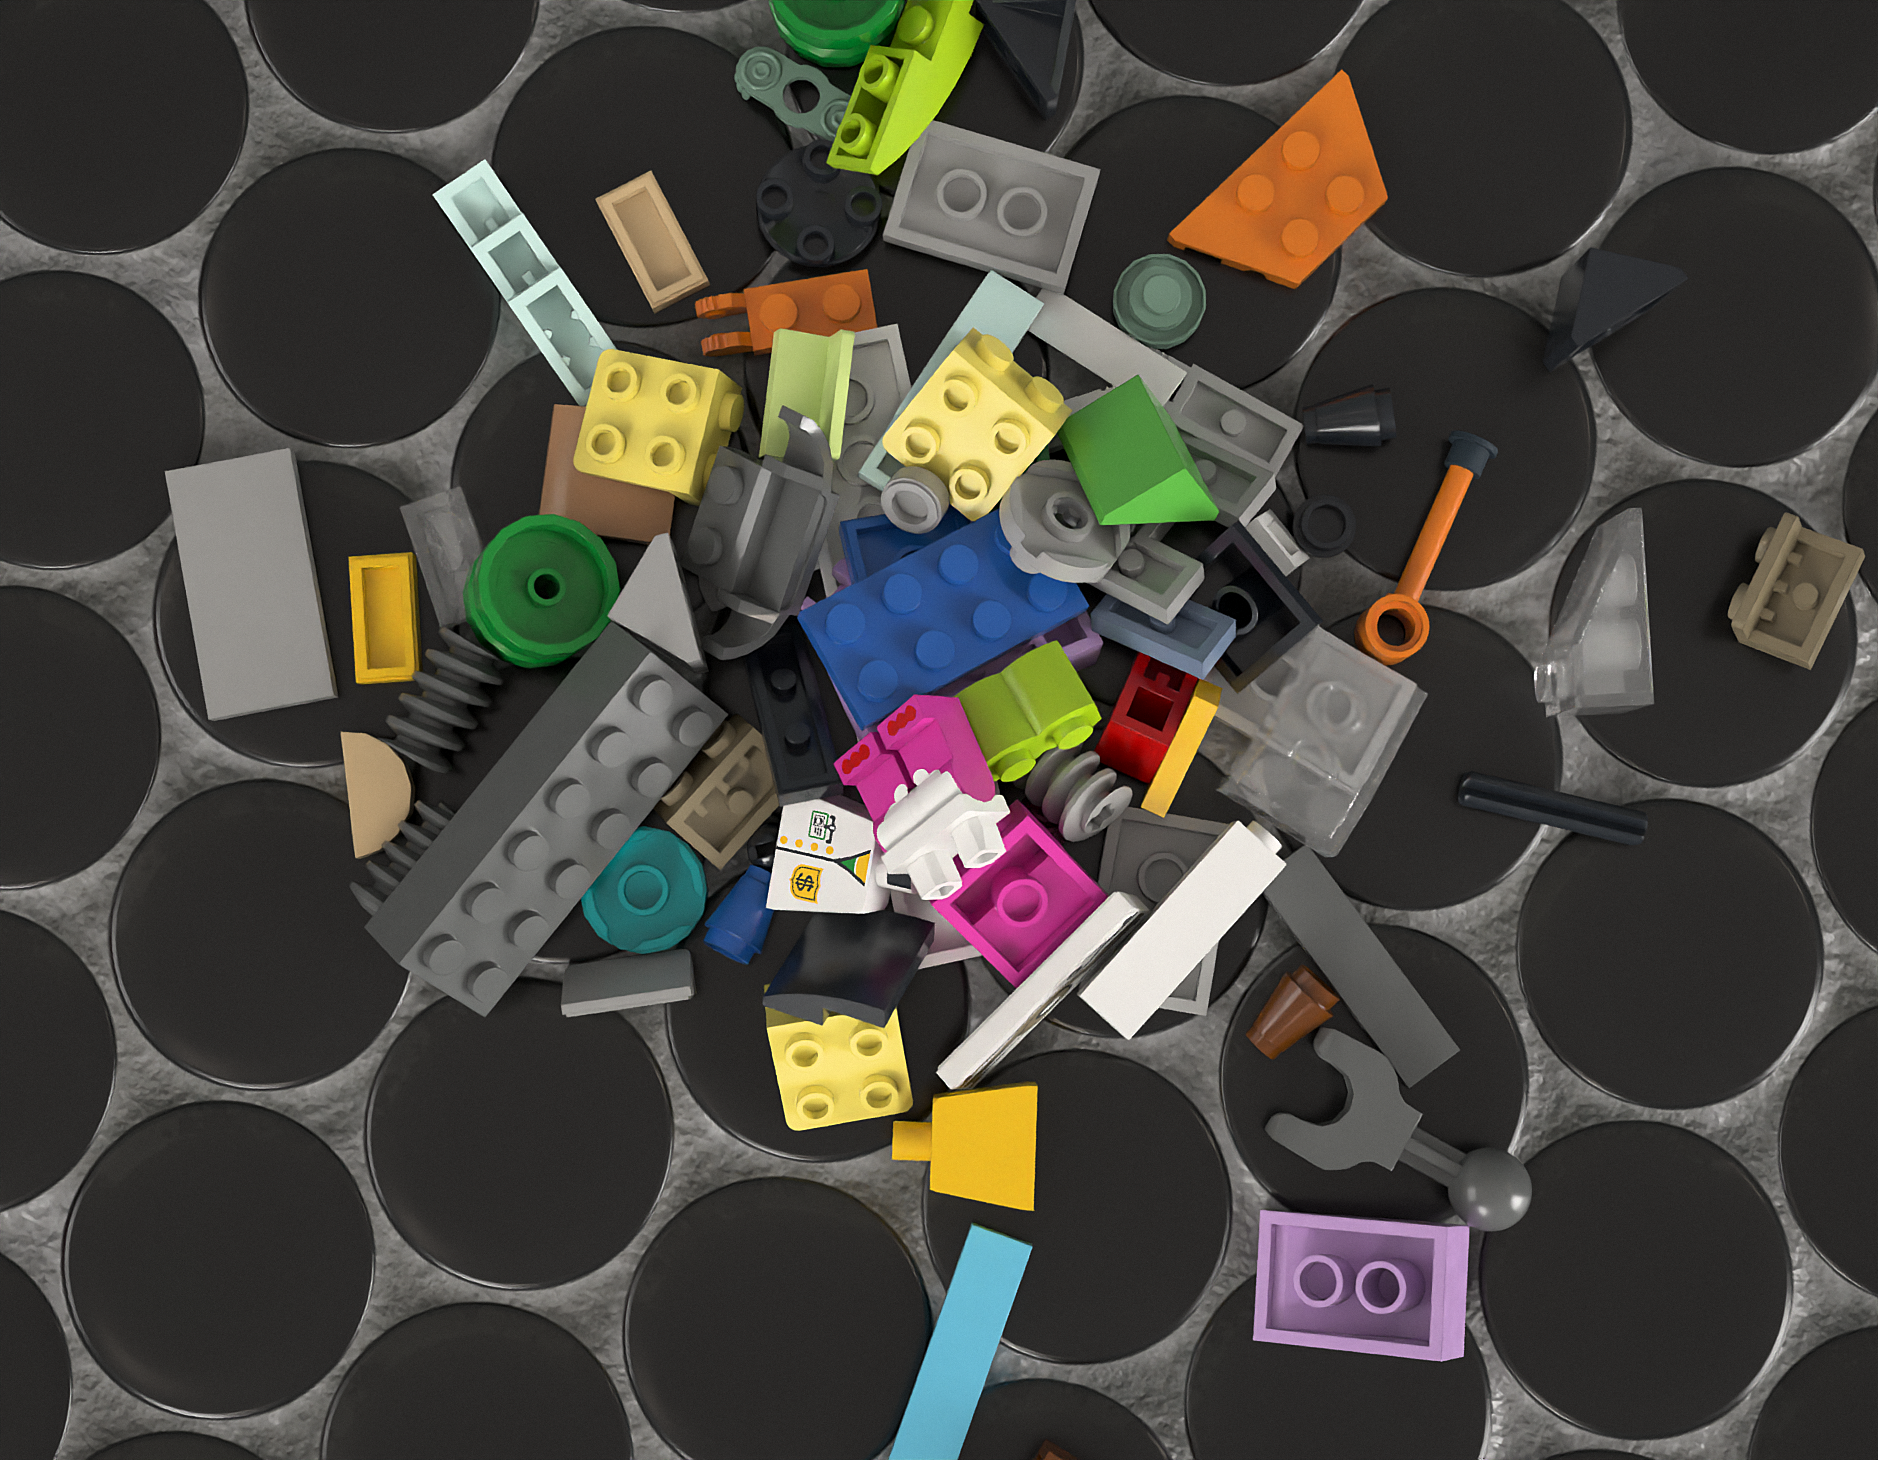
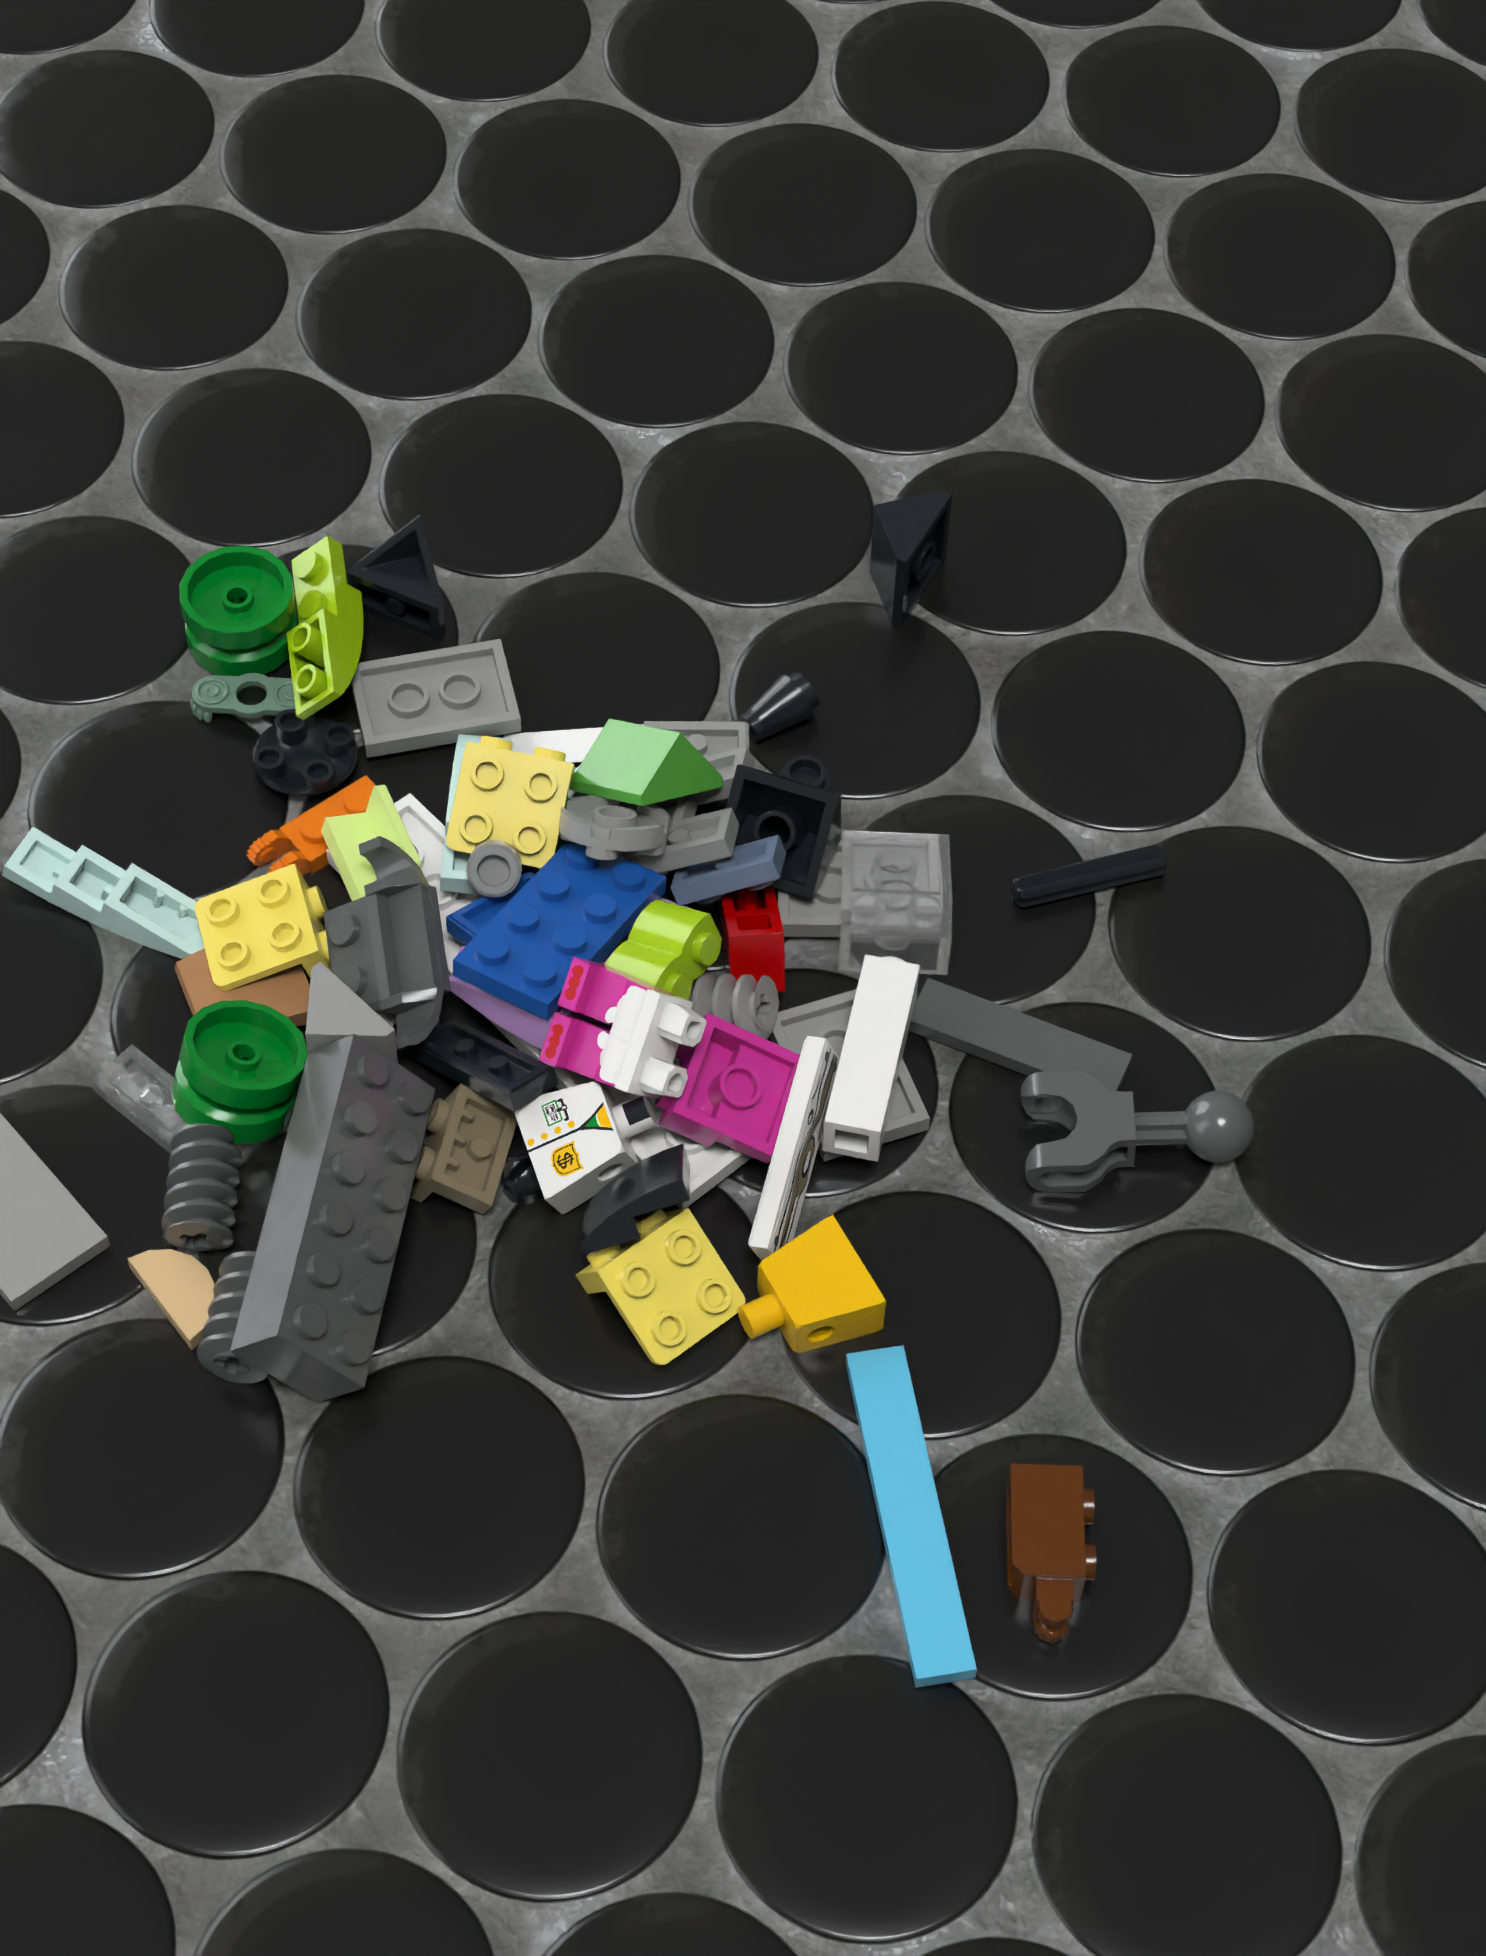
camera: 30 degrees left, 30 degrees down
(385, 617) = (119, 1170): yellow tile -> none
(628, 982) = (469, 1327): light grey slope -> none
(648, 893) = (443, 1258): teal tile -> none
(652, 242) = (191, 835): tan tile -> none
(742, 919) = (530, 1231): blue cone -> none
(1159, 301) = (593, 696): sand green plate -> none
(1183, 748) = (795, 947): yellow tile -> none
(1292, 1011) = (992, 1087): reddish brown cone -> none
(1293, 193) = (648, 603): orange wing -> none
(1362, 1284) = (1169, 1239): lavender slope -> none
(1464, 463) = (895, 802): orange piece -> none
(1602, 636) = (1049, 739): clear slope -> none
(1794, 591) = (1160, 667): dark tan bracket -> none

